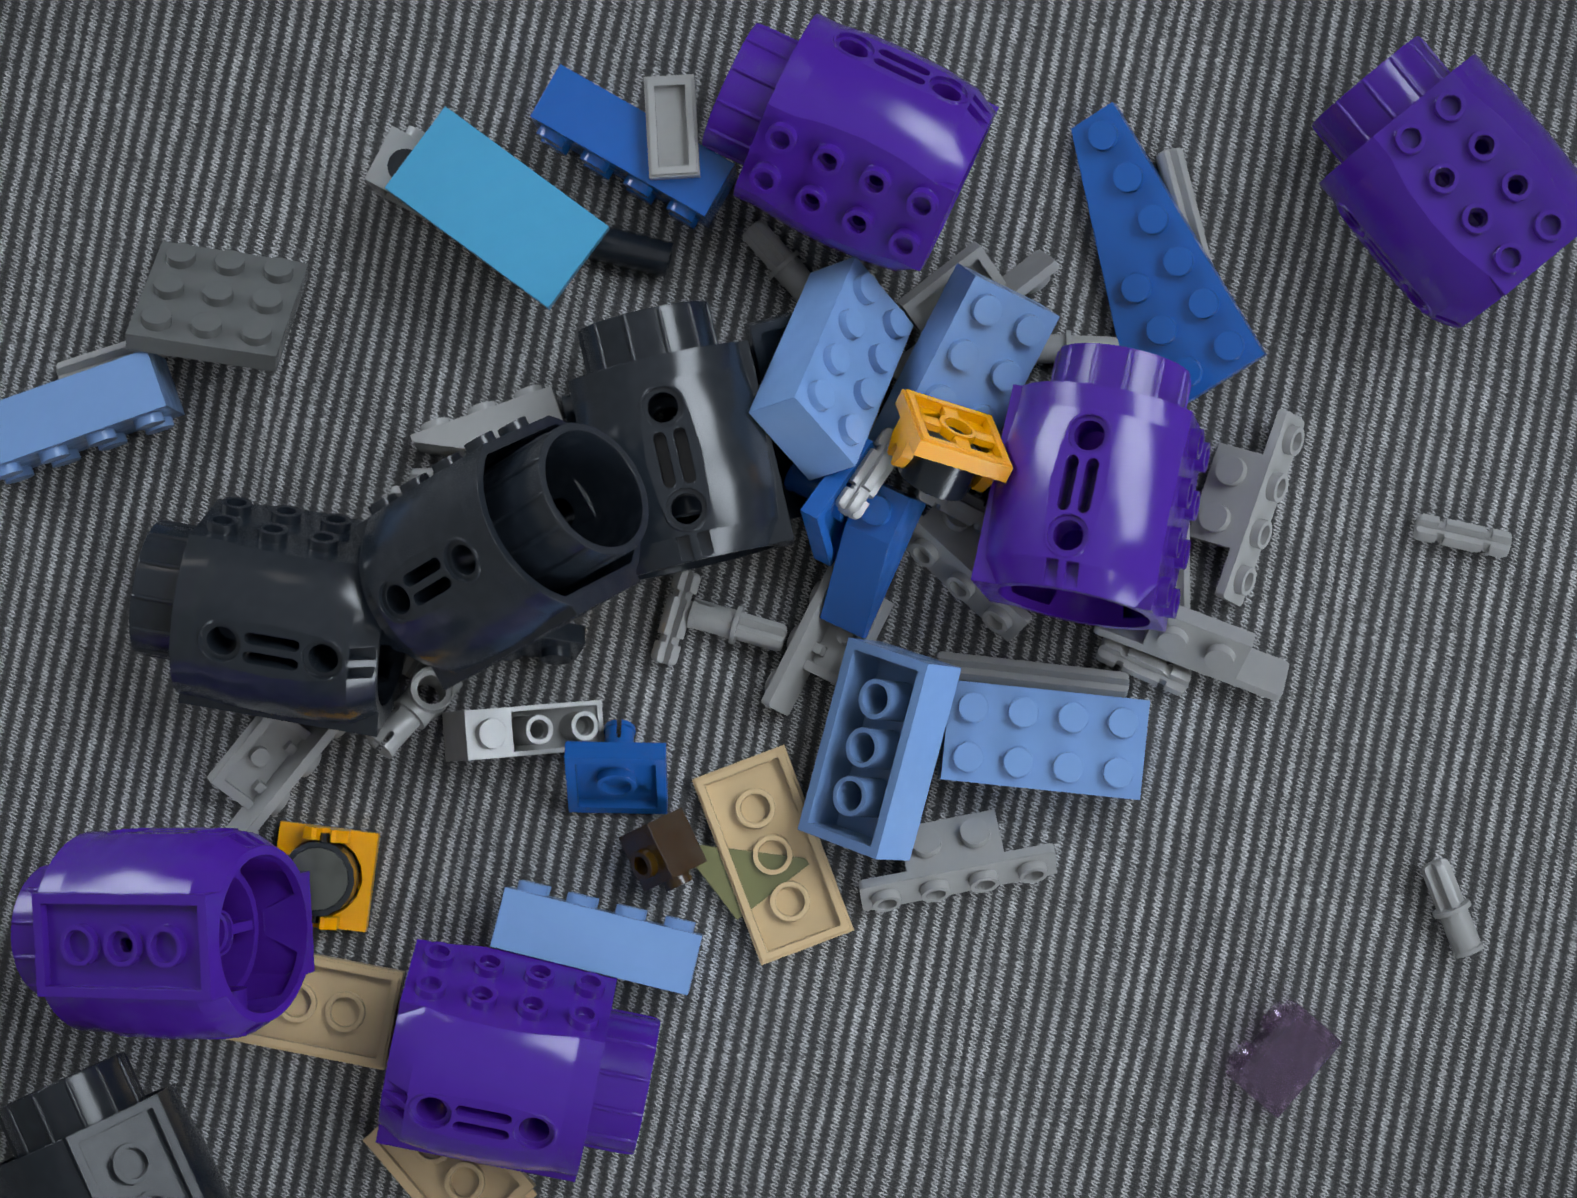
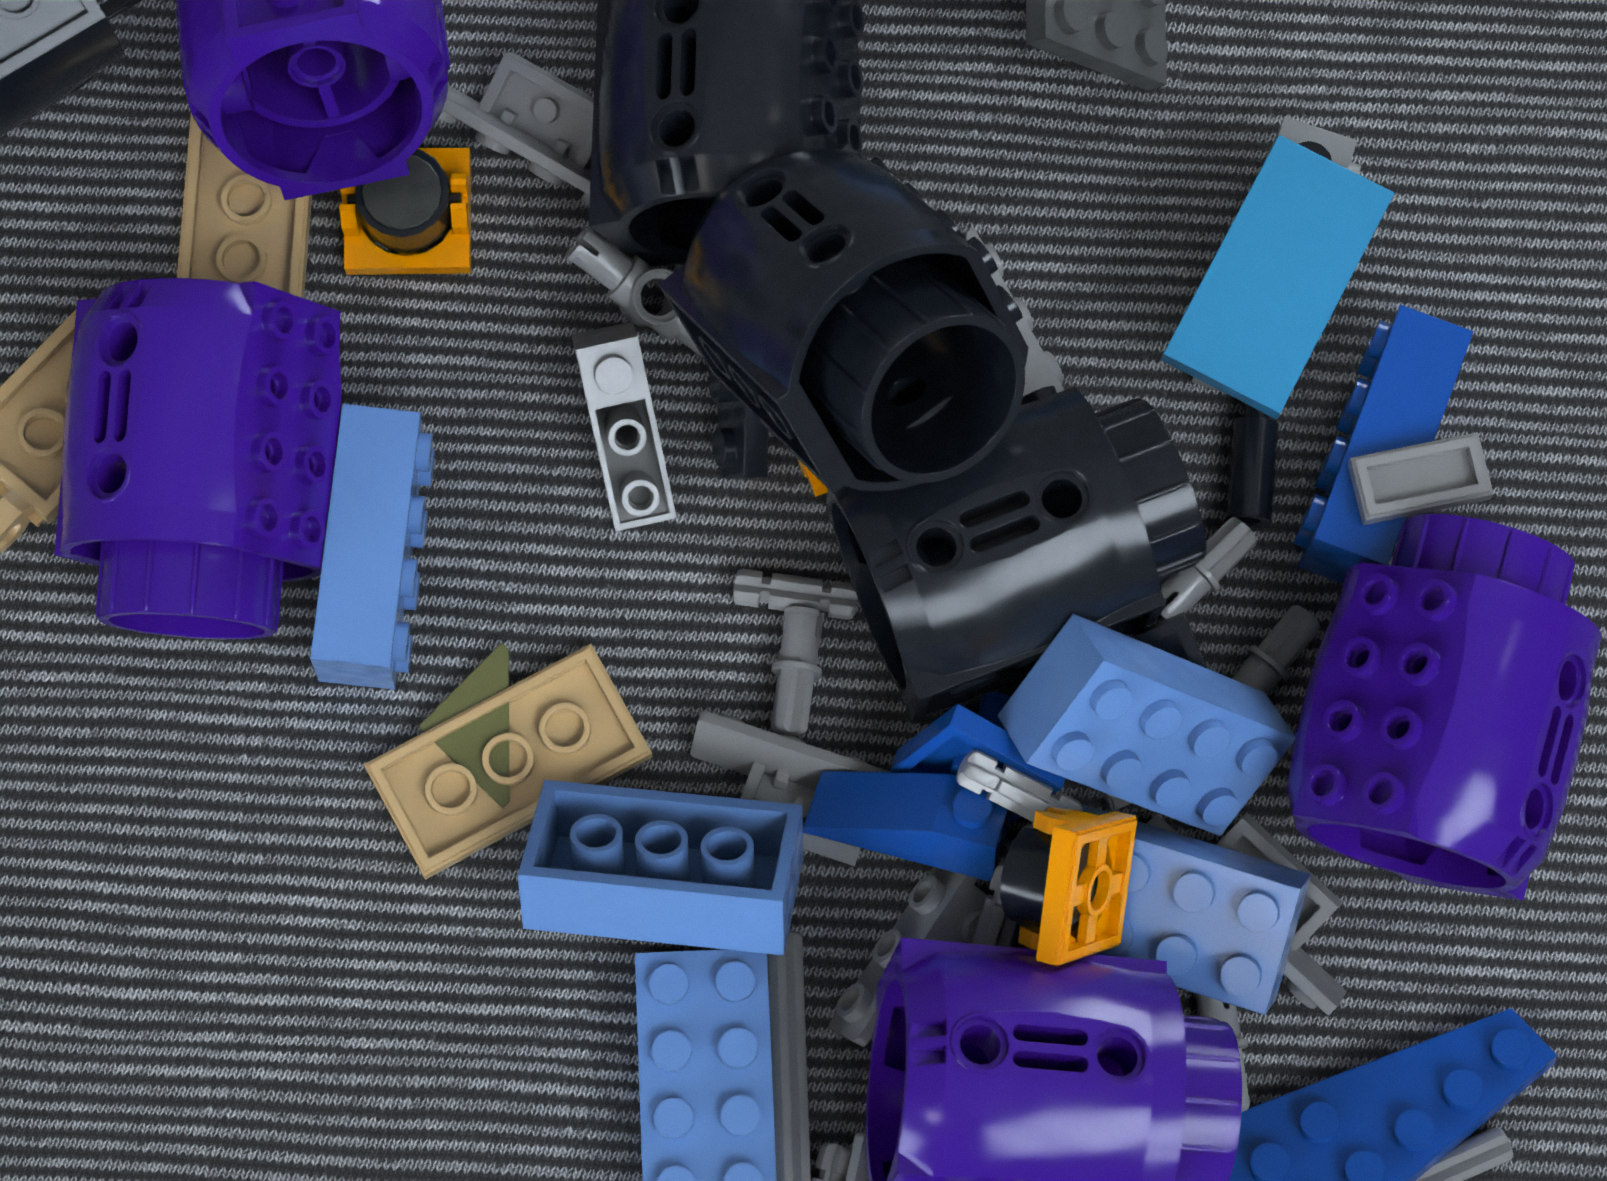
camera: 75 degrees right, 10 degrees down
(616, 774) = (584, 543): blue tile -> none
(663, 851) = (493, 616): dark brown brick -> none
(695, 287) = (1223, 552): none -> light grey axle
(957, 858) = (533, 995): light grey bracket -> none

